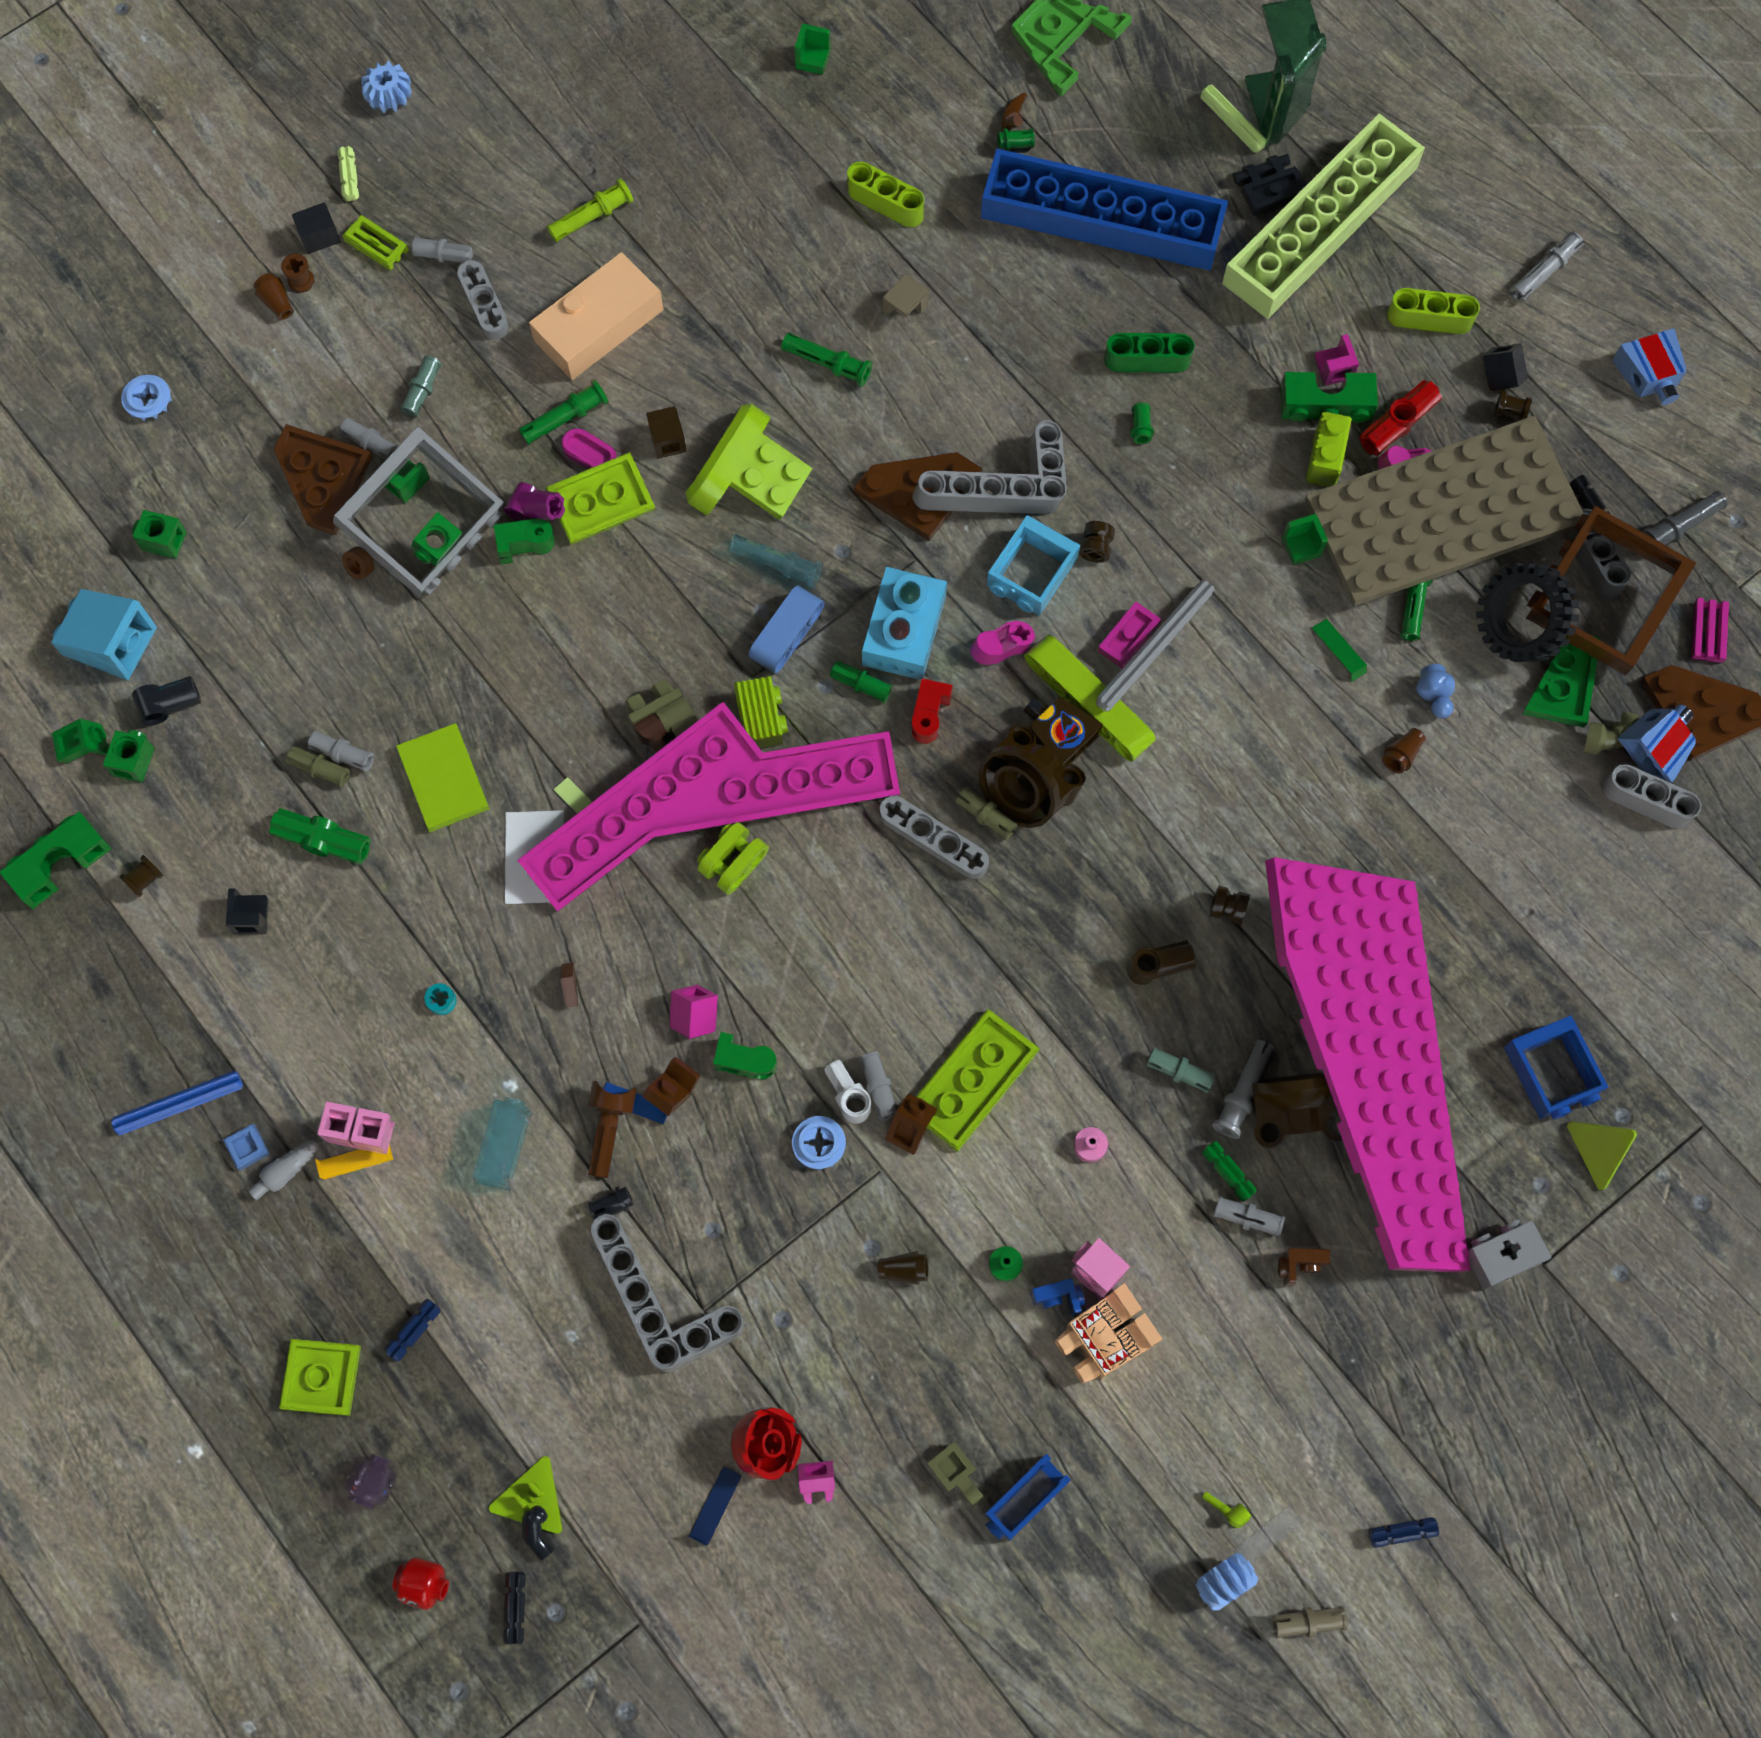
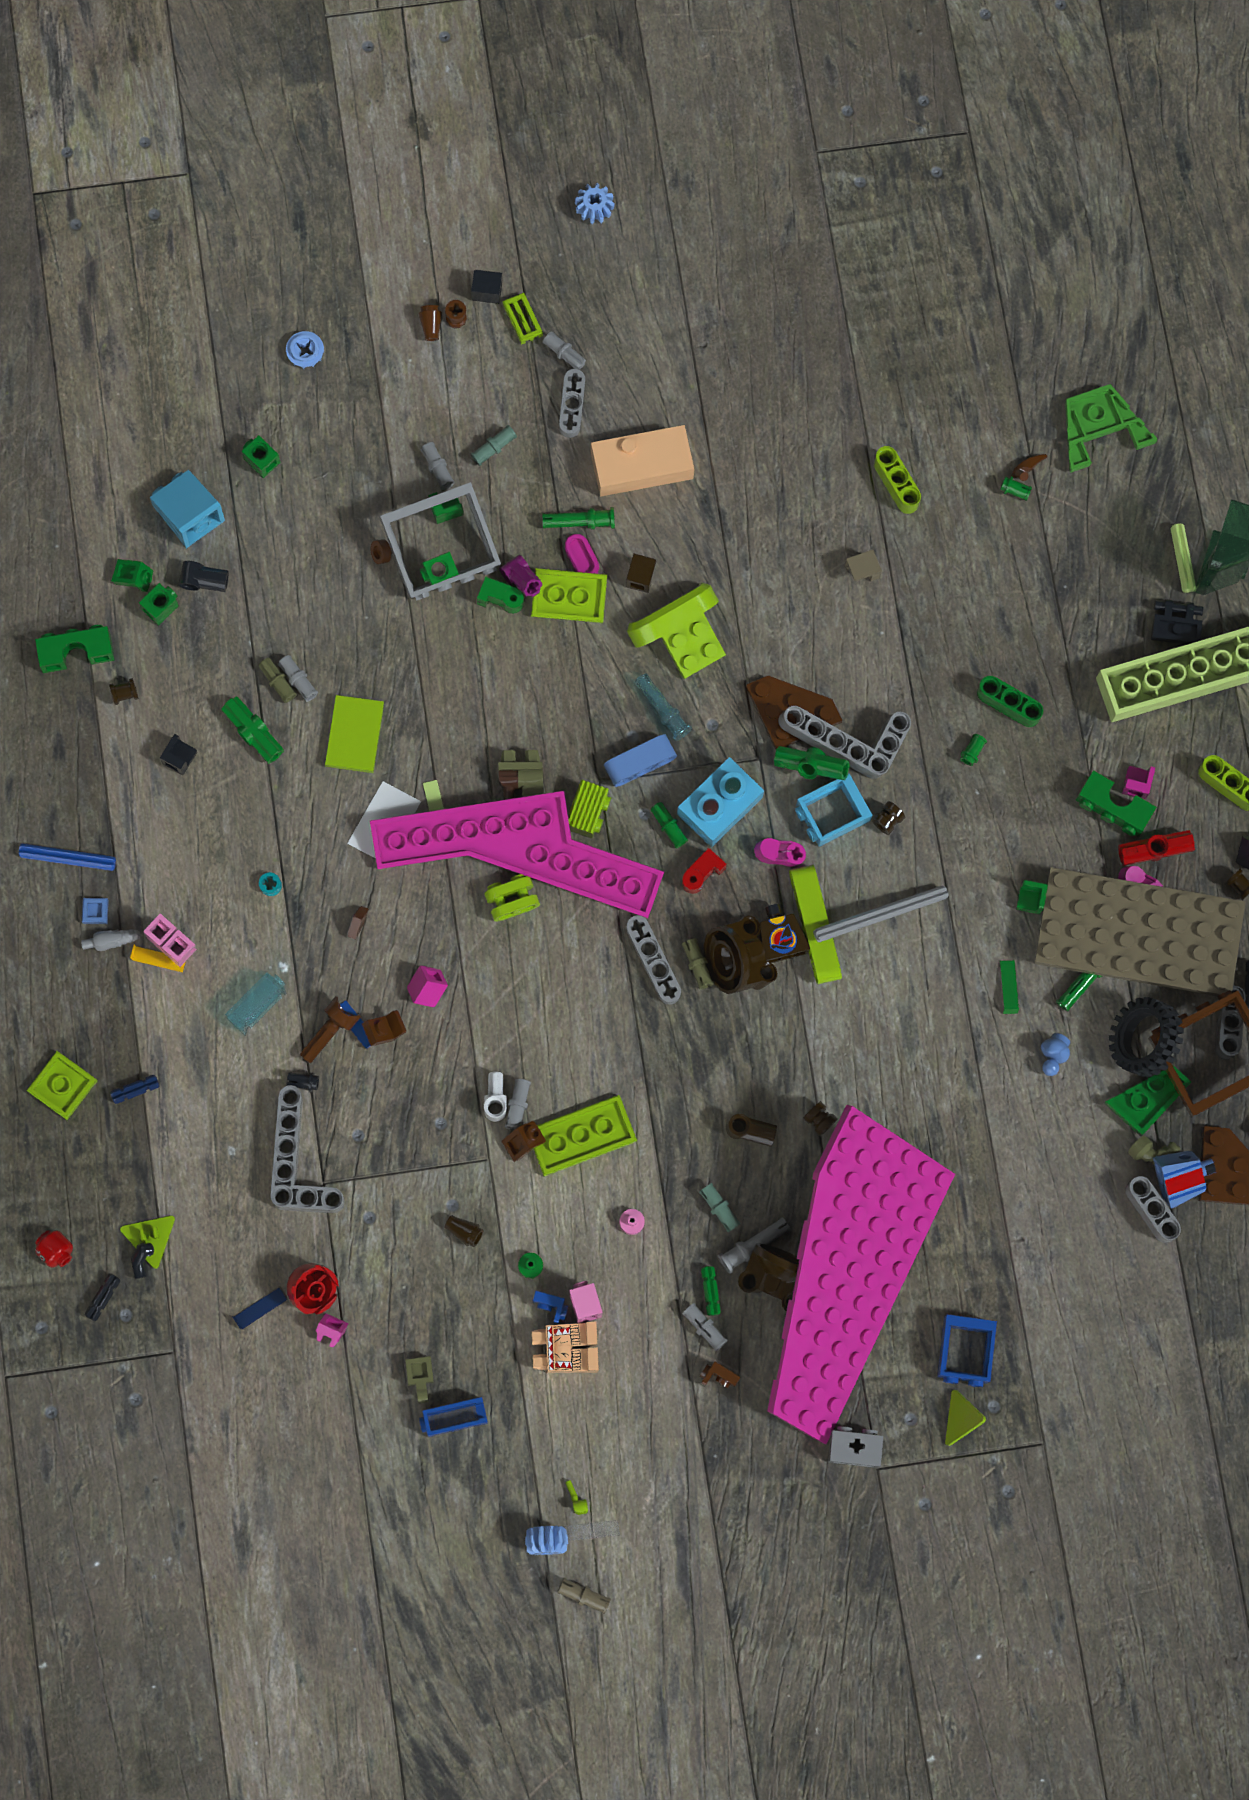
camera: 25 degrees right, 5 degrees up
(320, 473) = (391, 473): reddish brown plate -> none
(348, 173) = (531, 255): yellowish green axle -> none
(370, 1481) = (57, 1168): clear purple head -> none
(601, 204) = (693, 377): lime pin -> none
(742, 1060) = (436, 1034): green leg -> none
(807, 1132) = (455, 1107): light blue gear -> none
(812, 49) = (911, 339): green panel -> none
(838, 362) = (790, 588): green pin -> none
(979, 527) = (811, 763): none -> green piece
(1103, 209) = (1043, 578): blue brick -> none
(1129, 635) = (869, 895): dark pink plate -> none
(1328, 449) = (1090, 842): lime brick -> none
(1402, 753) = (1004, 1082): reddish brown cone -> none
(1403, 1532) = (678, 1578): dark blue axle -> none

